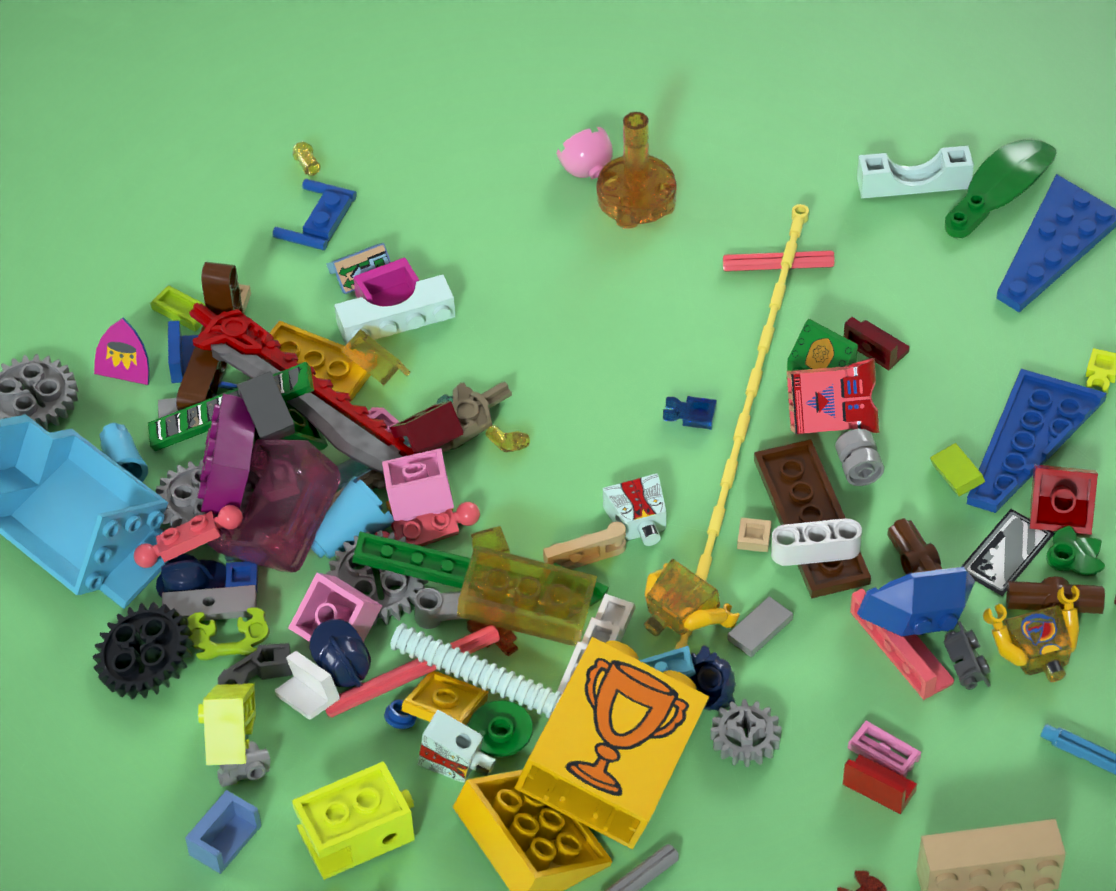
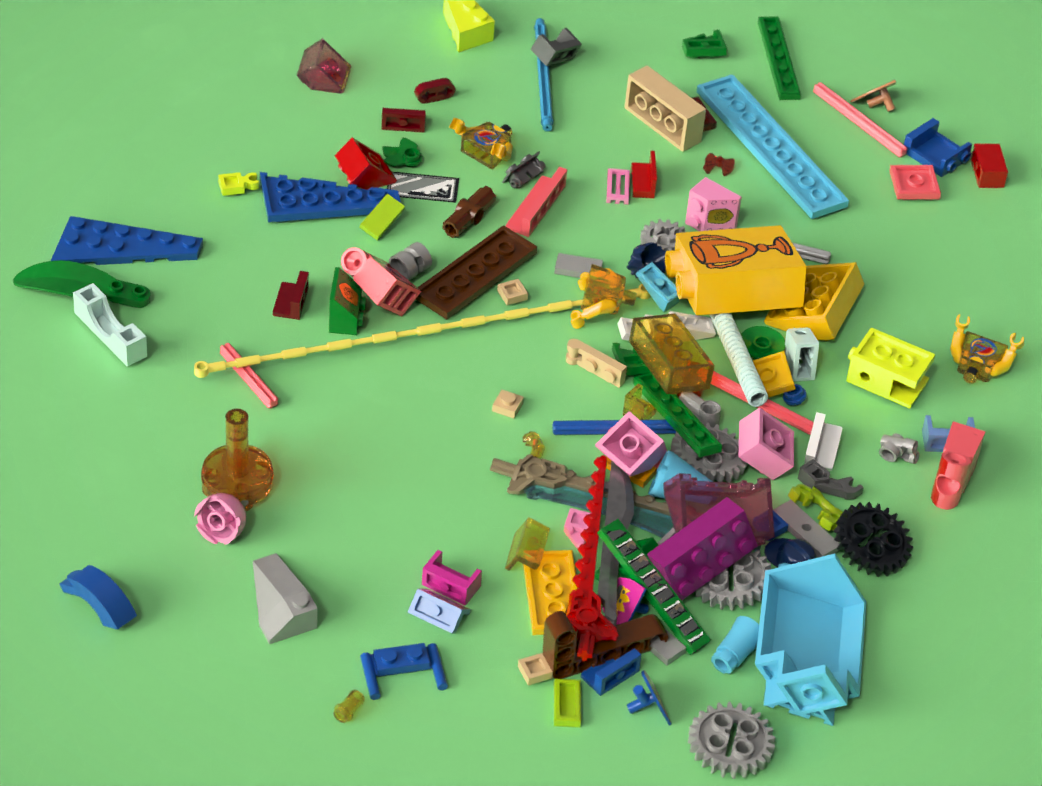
camera: 130 degrees left, 5 degrees down
(163, 782) = (956, 465): none -> coral piece
(188, 536) = (775, 542): coral plate -> none
(227, 717) = (885, 452): neon yellow wedge -> none
(266, 407) = (653, 534): dark grey panel -> none
(340, 652) = (796, 421): dark blue piece -> none
(427, 305) = (498, 573): light aqua arch -> none
(430, 427) = (576, 470): dark red panel -> none
(459, 167) = (282, 600): none -> light grey wedge
(489, 514) = (601, 427): none -> blue axle
(555, 38) = (102, 595): none -> blue arch
(587, 450) = (507, 404): none -> tan plate
(638, 506) = (539, 351): torso -> none
(695, 411) = (432, 359): clear blue plate -> none
(757, 799) = (712, 207): none -> bright pink slope
(816, 542) = (506, 247): white beam -> none
(919, 602) = (511, 180): blue wedge -> none
(1044, 595) = (448, 148): reddish brown piece -> none

